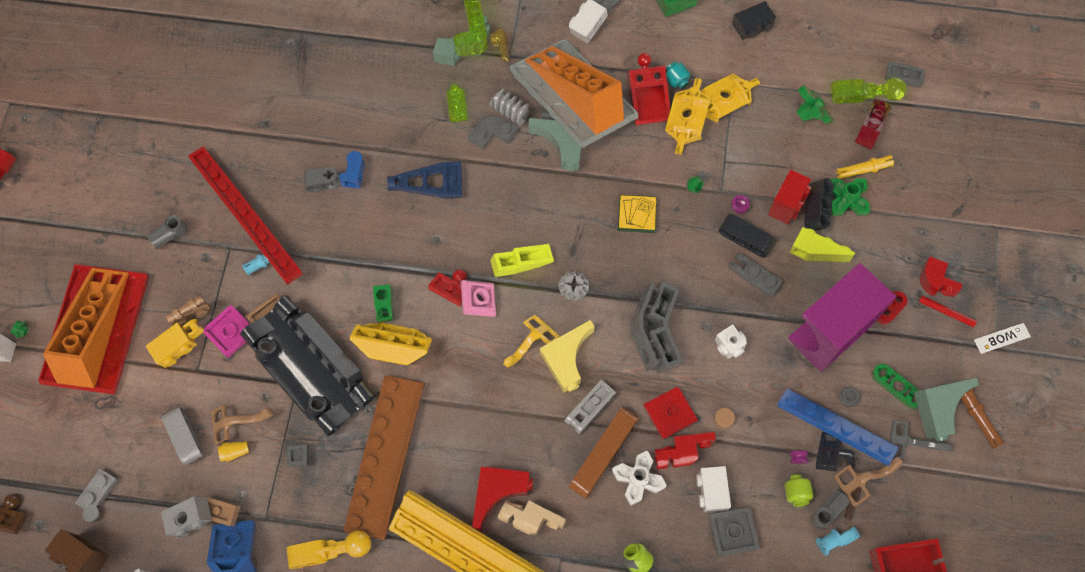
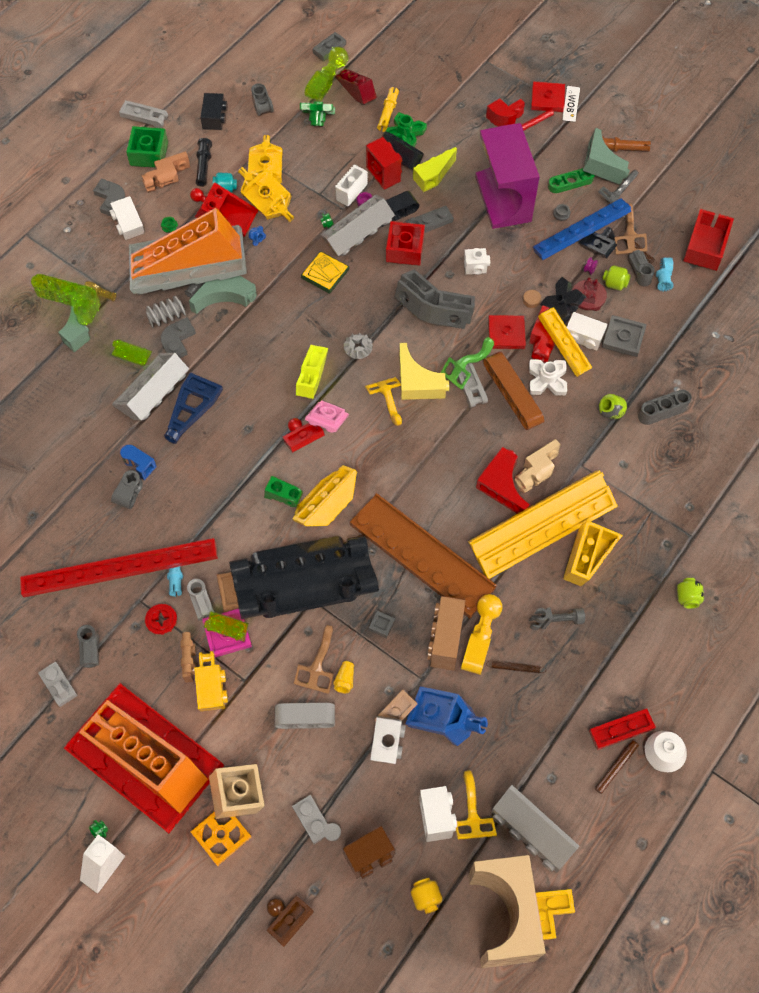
camera: 65 degrees left, 5 degrees down
(41, 419) = (197, 832): none -> light orange piece
(86, 416) = (236, 791): none -> tan brick
(128, 228) = (57, 684): none -> light grey hinge
(209, 272) = (153, 615): none -> red gear
(226, 335) = (226, 626): none -> clear neon green hinge
(247, 294) = (200, 600): none -> light grey piece
(308, 517) = (446, 633): none -> medium nougat brick
(429, 139) = (151, 386): none -> slope
(605, 53) = (169, 224): none -> green plate
(632, 402) = (461, 363): none -> bright green piece
(639, 134) = (257, 235): none -> blue plate
(659, 21) = (165, 171): none -> nougat plate
(685, 475) = (565, 342): none -> yellow tile
(699, 41) = (203, 155): none -> black pin
(701, 213) = (358, 225): none -> light grey slope
(709, 266) = (405, 243): none -> red brick
(732, 449) = (565, 301): none -> black plant
(745, 183) = (351, 185): none -> white brick
(754, 475) = (594, 293): none -> dark red plate
(793, 54) = (261, 99): none -> dark grey piece
(992, 310) = (548, 96): none -> red plate

